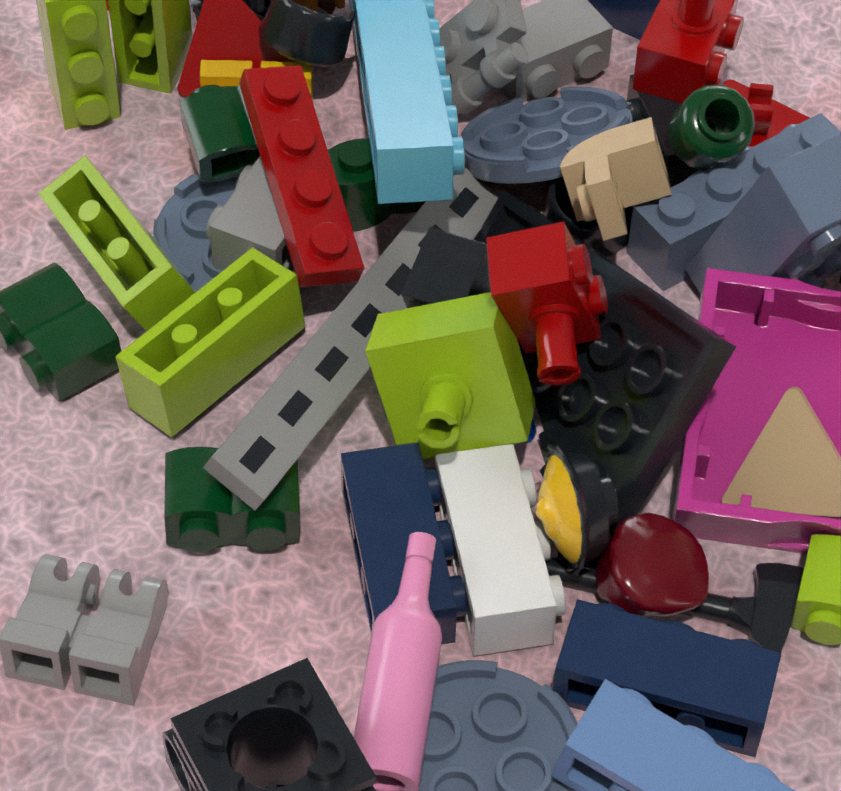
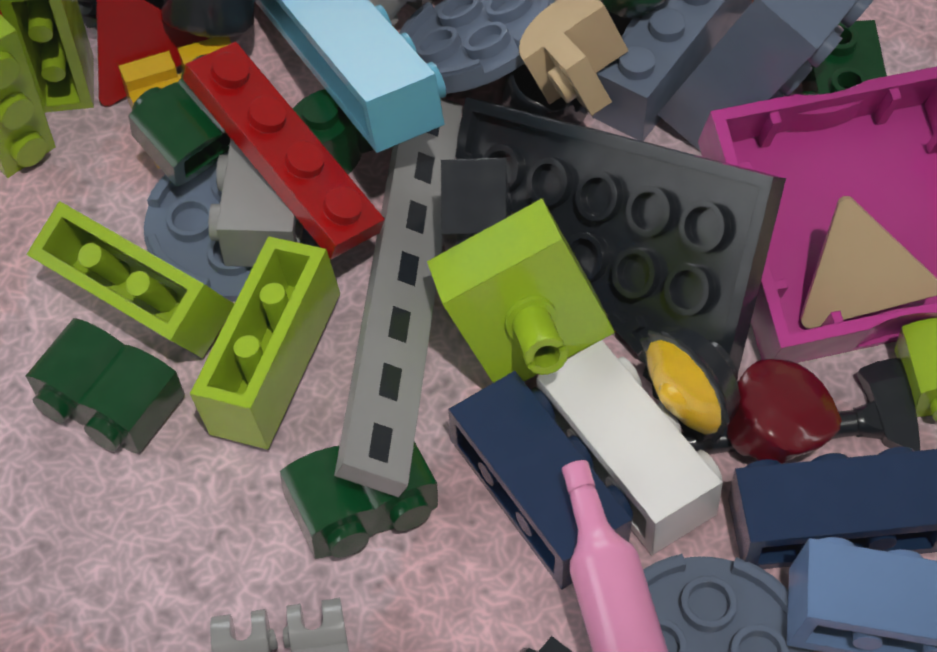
camera: 20 degrees left, 5 degrees up
(547, 296) = (587, 190): red brick -> none

